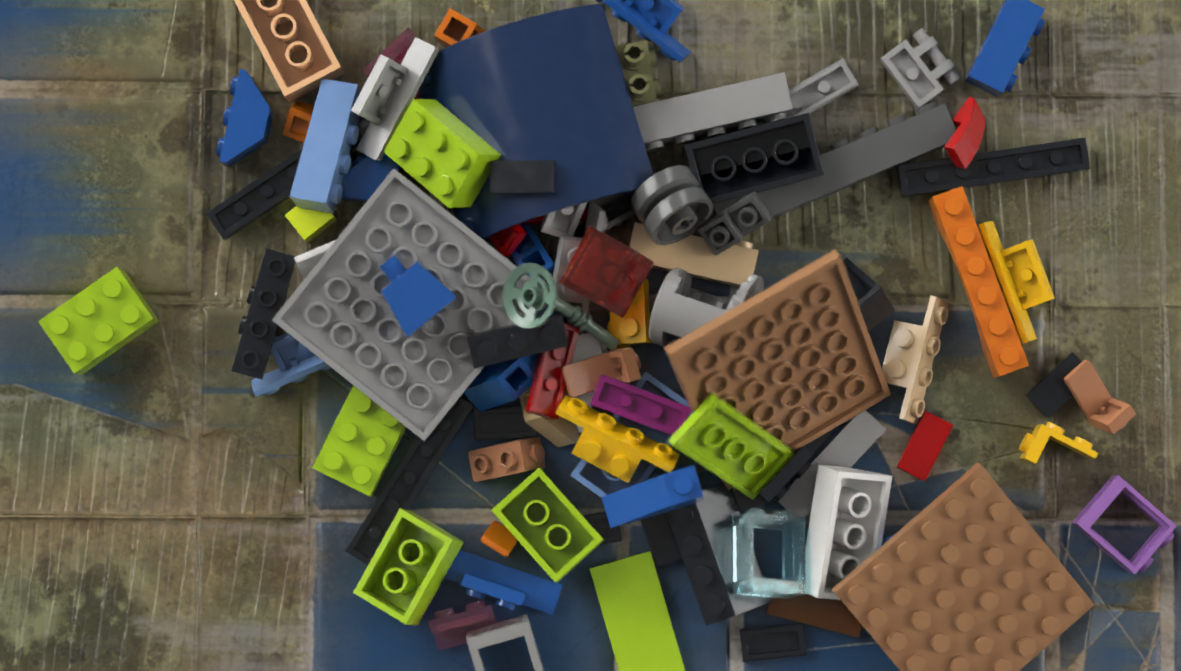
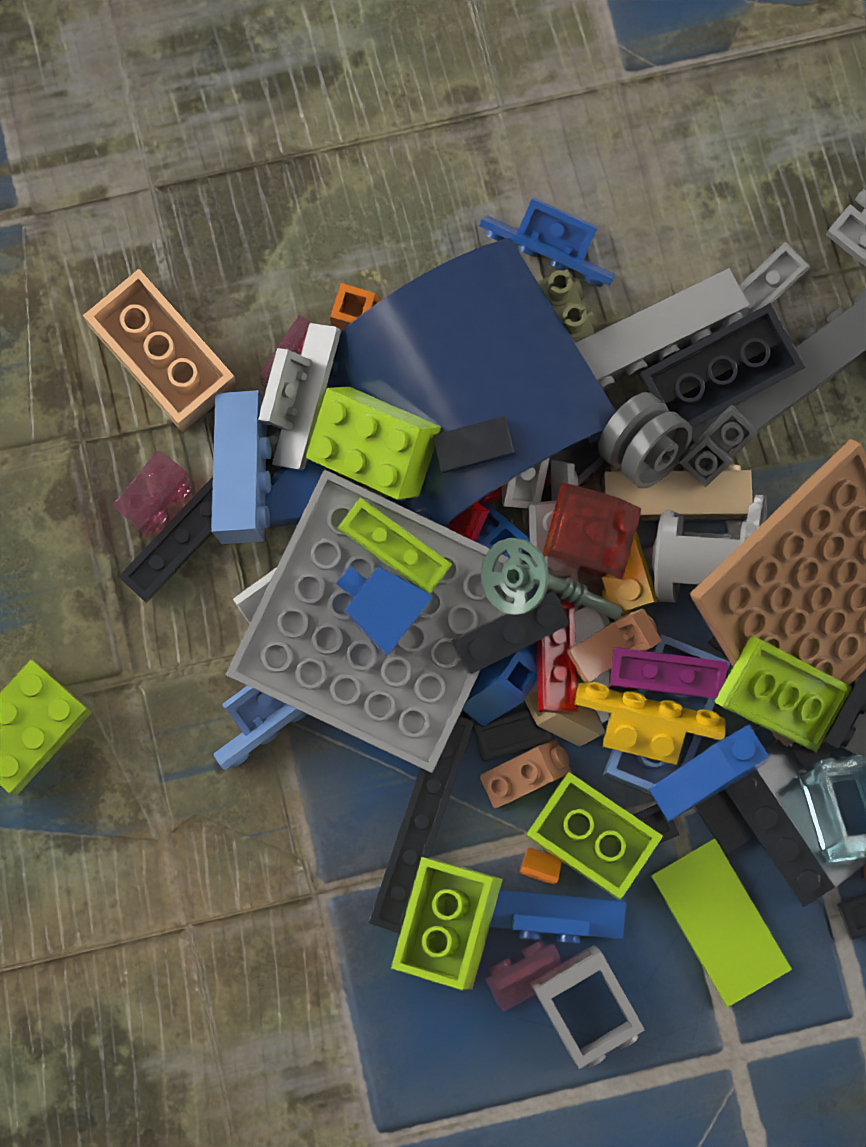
camera: 20 degrees left, 5 degrees down
(246, 121) = (137, 447): blue slope -> none
(250, 149) = (152, 493): none -> clear pink bracket
(265, 301) = (210, 685): black bracket -> none
(298, 121) = (199, 451): orange slope -> none
(309, 222) = (238, 558): neon yellow brick -> none
(360, 444) = (356, 793): lime brick -> none
(436, 246) = (394, 546): none -> lime tile

